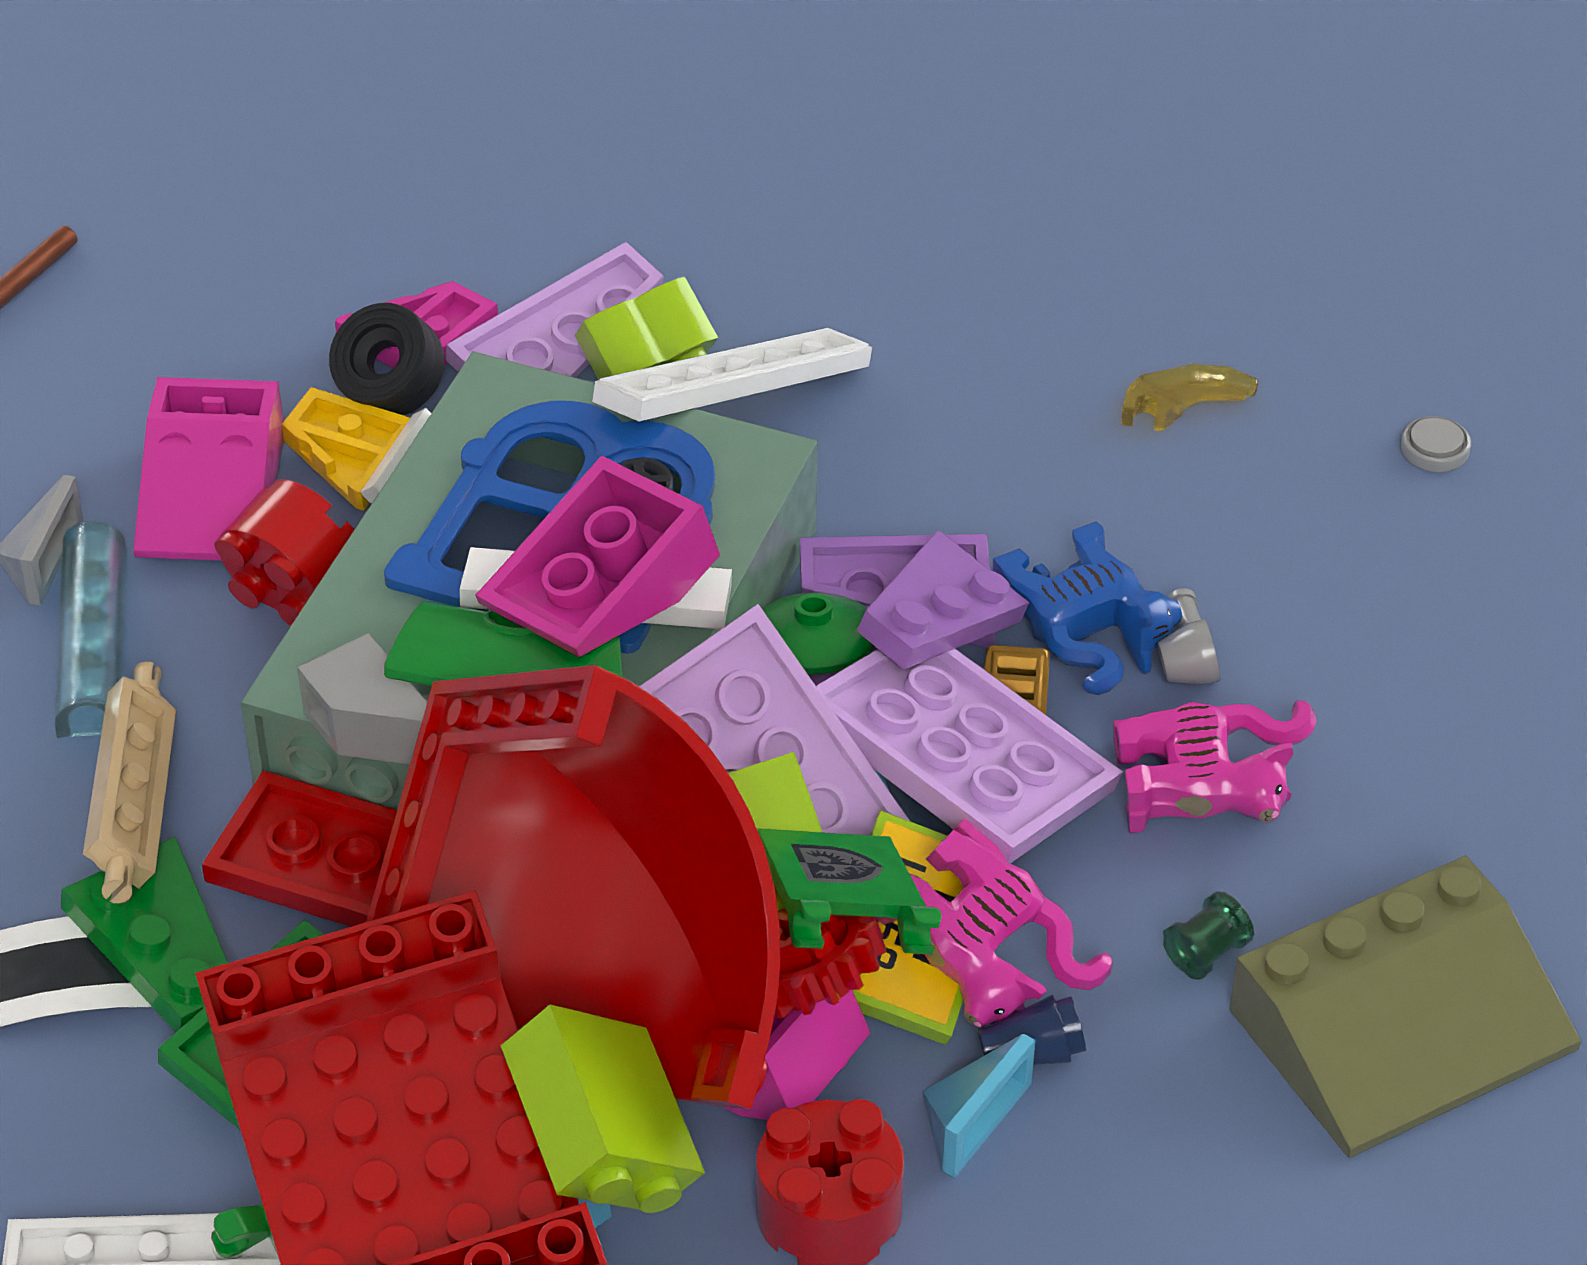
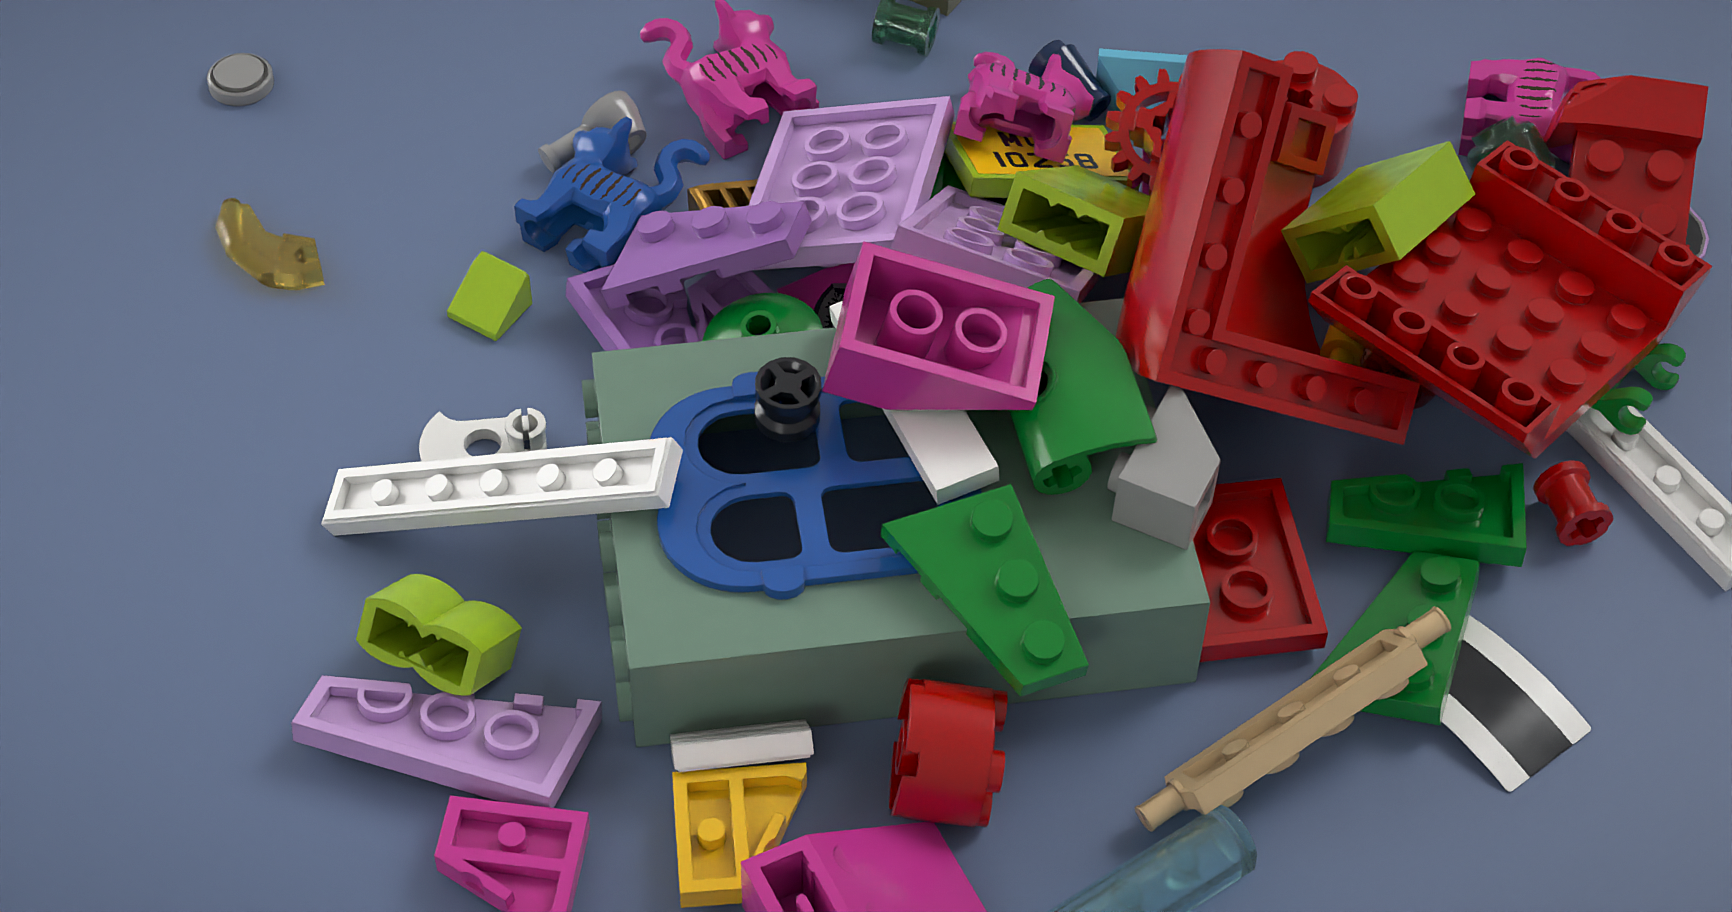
camera: 120 degrees left, 5 degrees up
(184, 1138) = (1572, 503): none -> red bush
(359, 560) = (996, 583): none -> green wing
(369, 333) = (585, 855): black tyre -> none
(845, 876) = (1102, 115): green flag -> none
(870, 430) = (450, 438): none -> white piece
(1019, 506) = (491, 296): none -> lime slope

